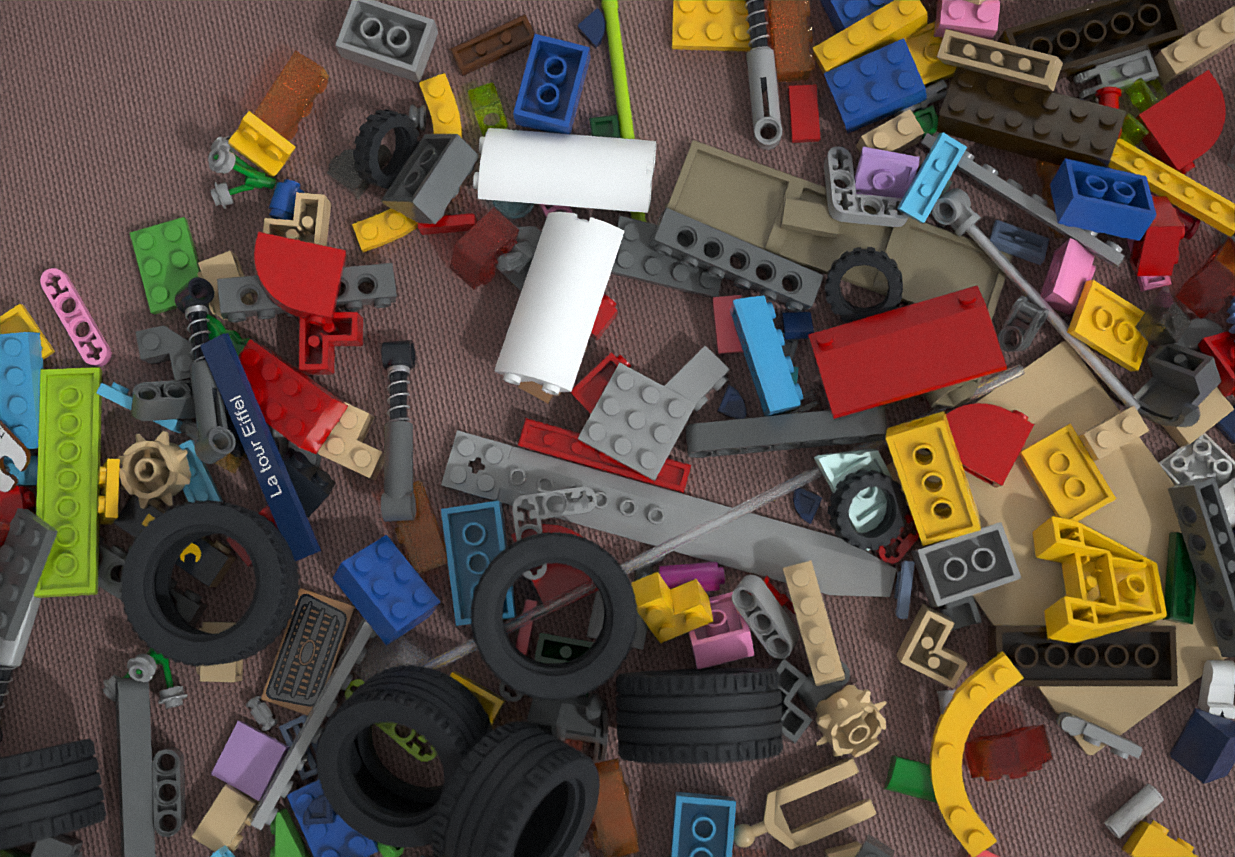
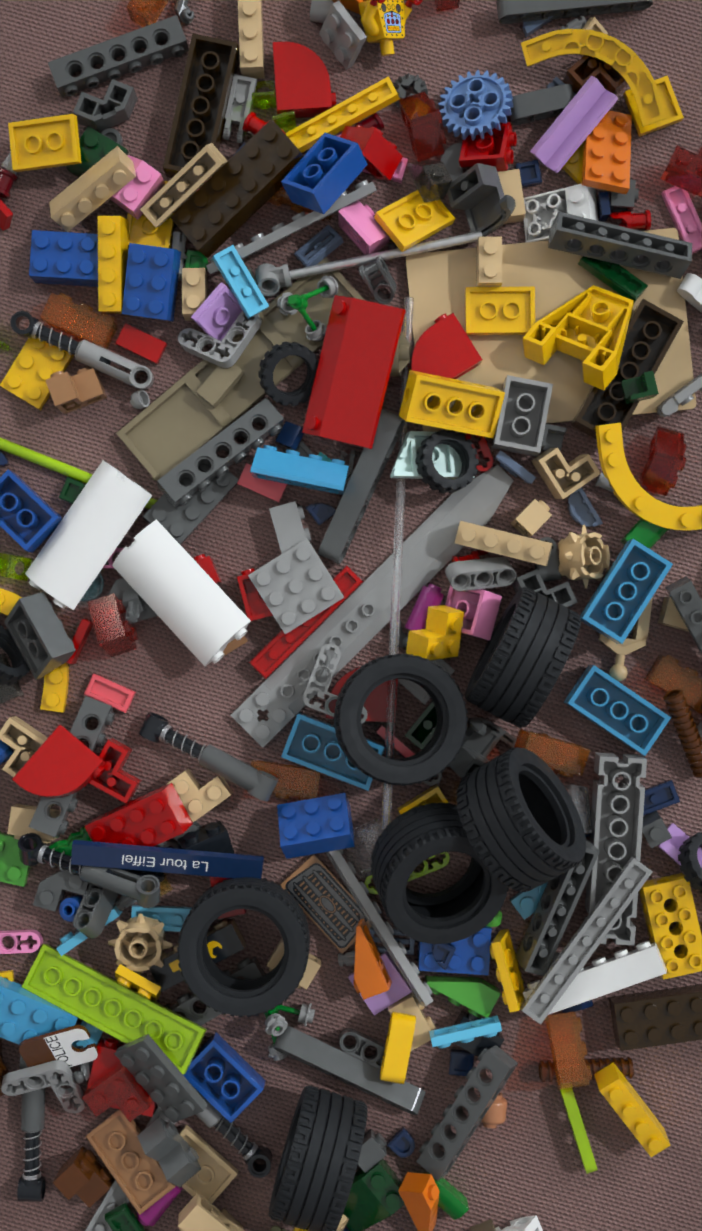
camera: 65 degrees left, 5 degrees up
(54, 644) = (224, 1077): none -> blue brick
(154, 371) = (69, 907): none -> blue brick
(187, 819) = (397, 1047): none -> yellow beam
(258, 739) = (369, 969): none -> orange slope
(410, 288) = (109, 693): none -> coral tile
(712, 73) = (75, 391): none -> medium nougat brick
(743, 144) = (139, 399): none -> light grey hinge
(806, 504) = (418, 501): dark blue tile -> none
(838, 790) = (625, 591): none -> dark azure brick
(859, 639) = (531, 518): none -> tan brick
(901, 692) = (582, 509): none -> sand blue tile
(941, 246) = (290, 304): none -> light grey plant
(1074, 678) = (639, 388): none -> dark green panel

